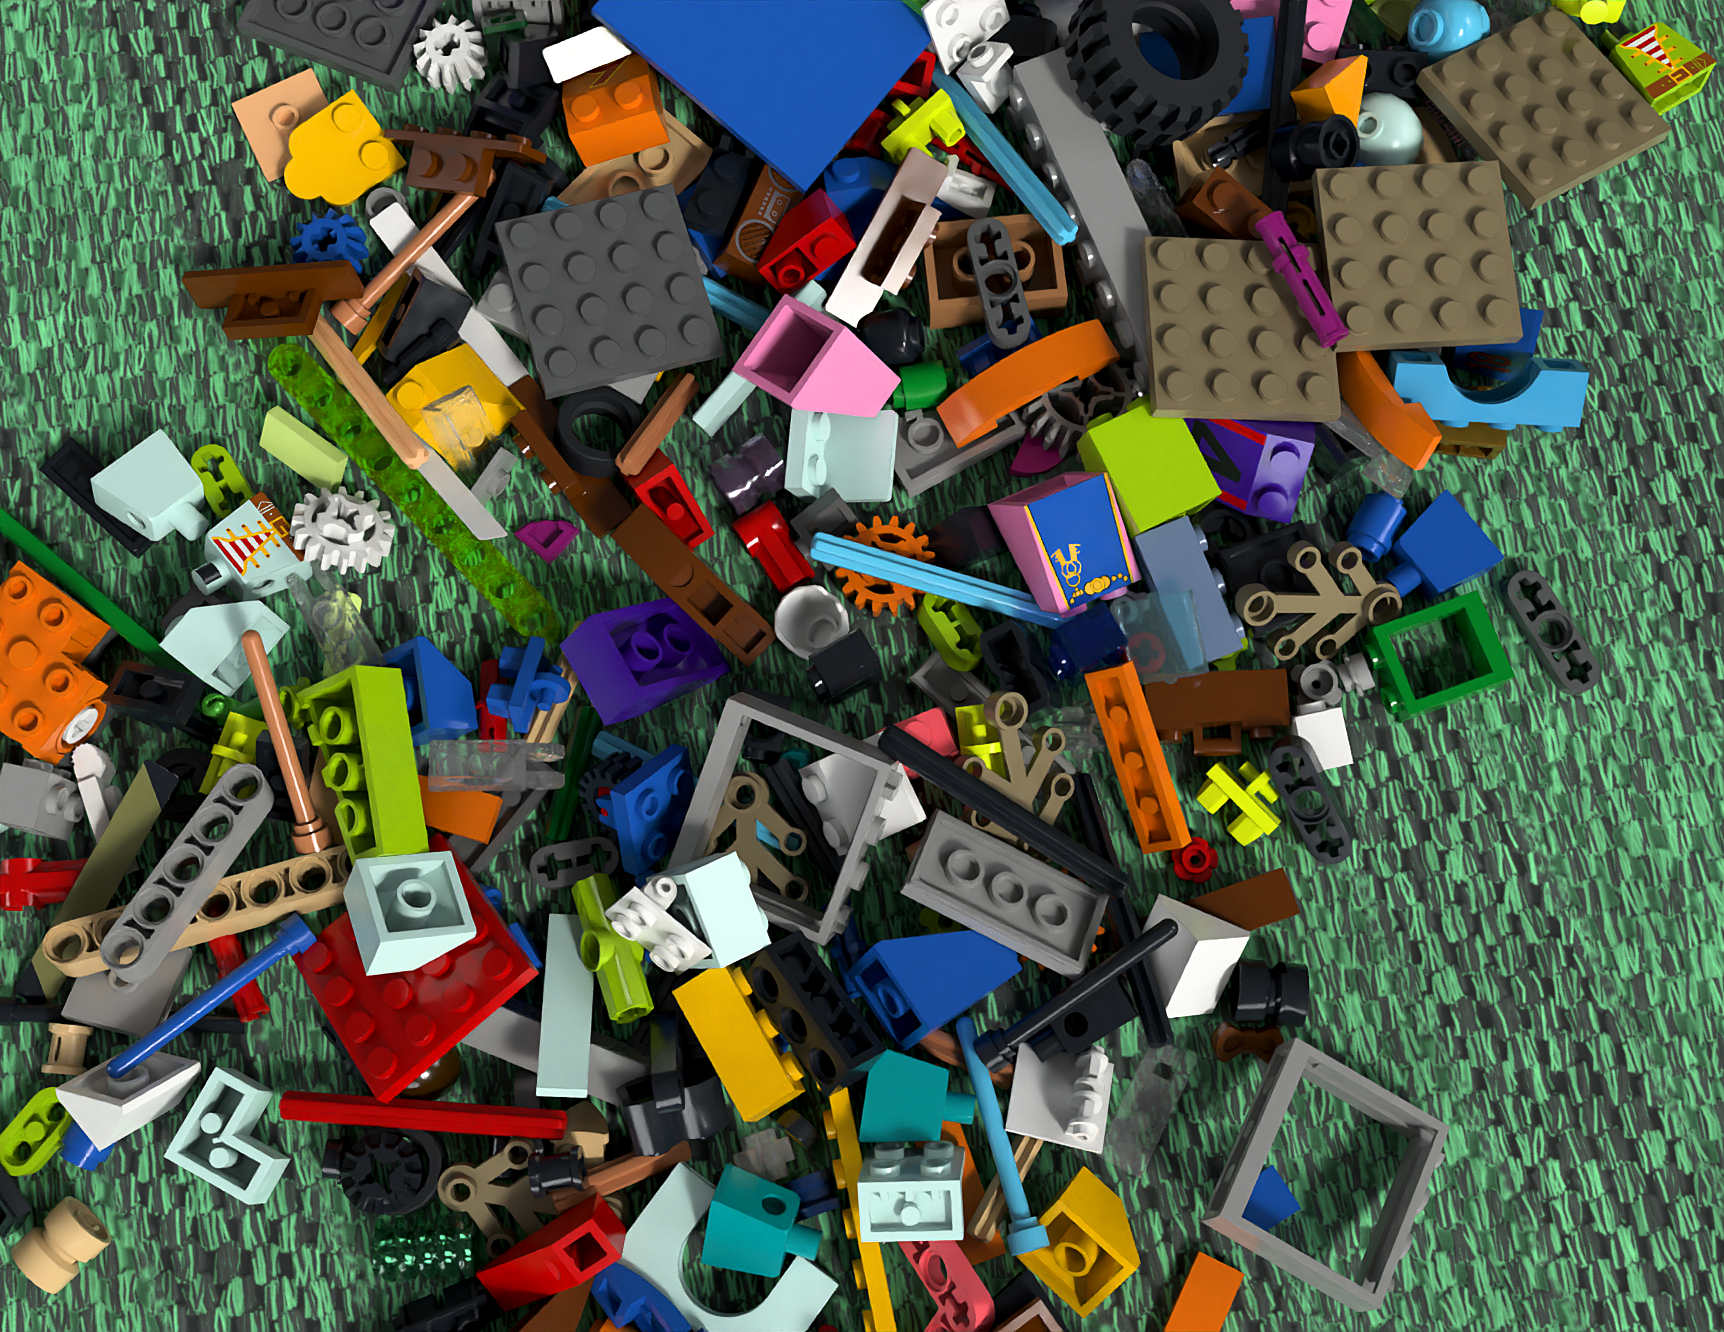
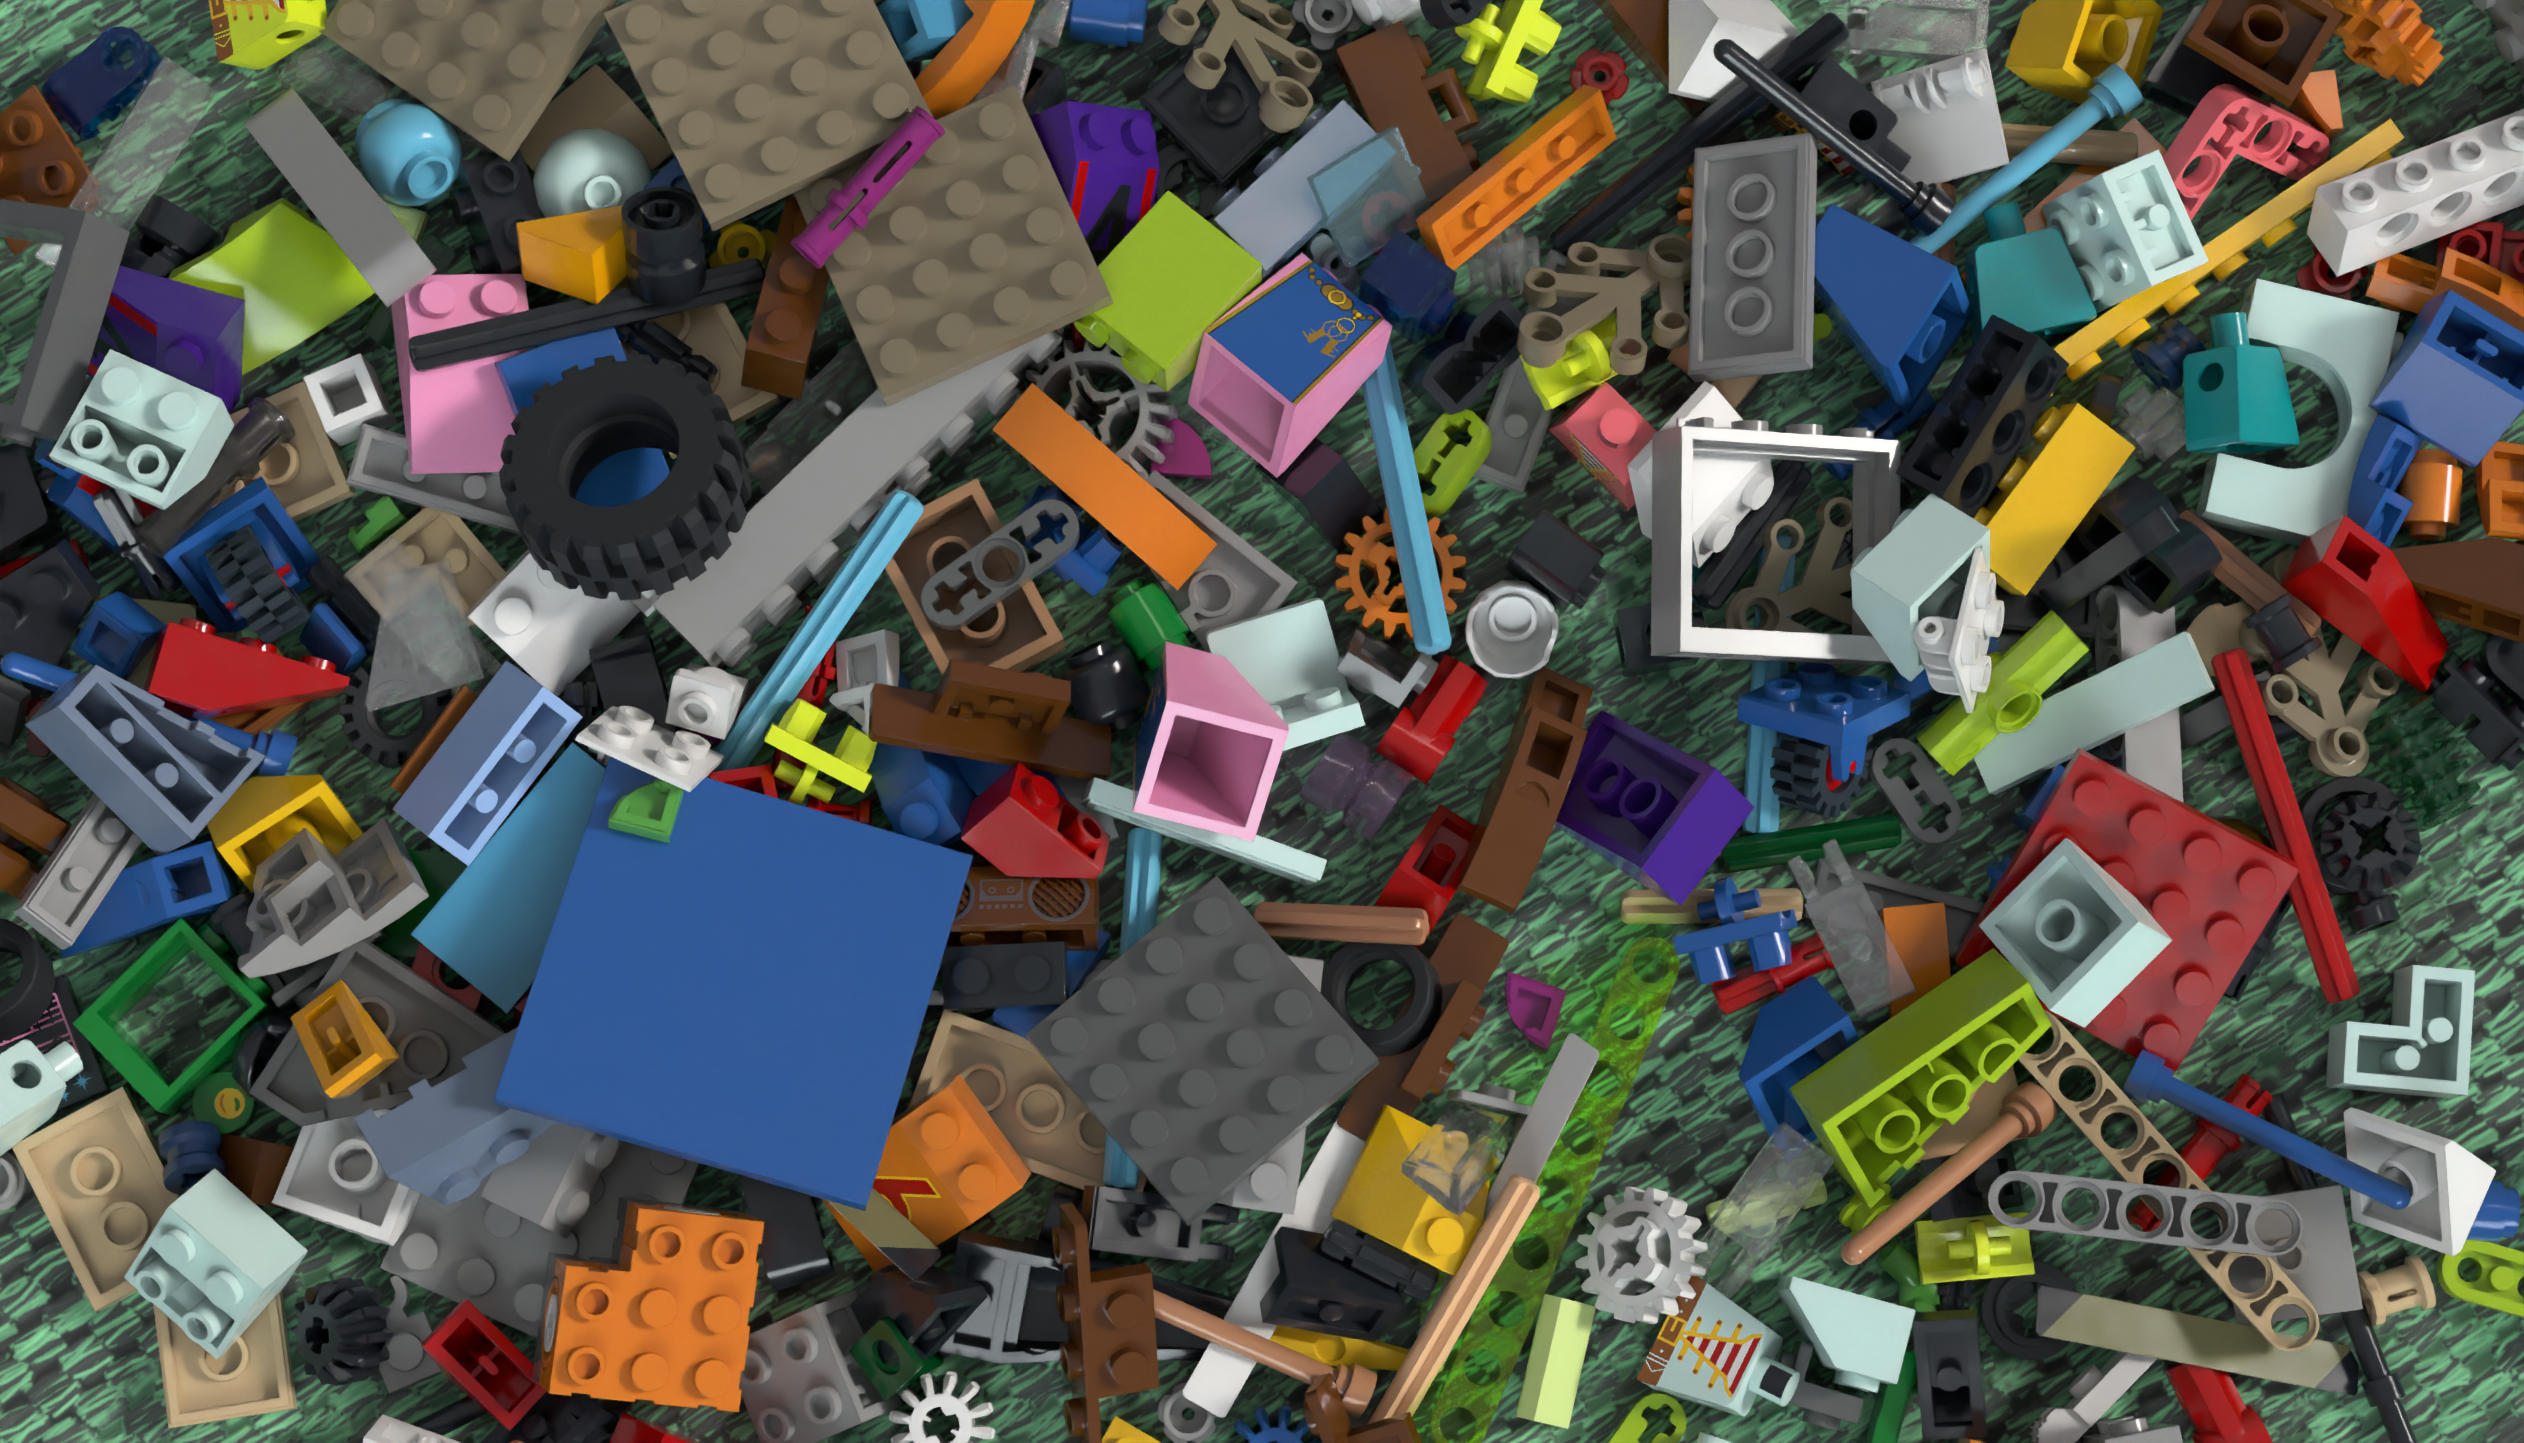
camera: 120 degrees left, 5 degrees up
(1003, 811) = (1662, 295): black axle -> none

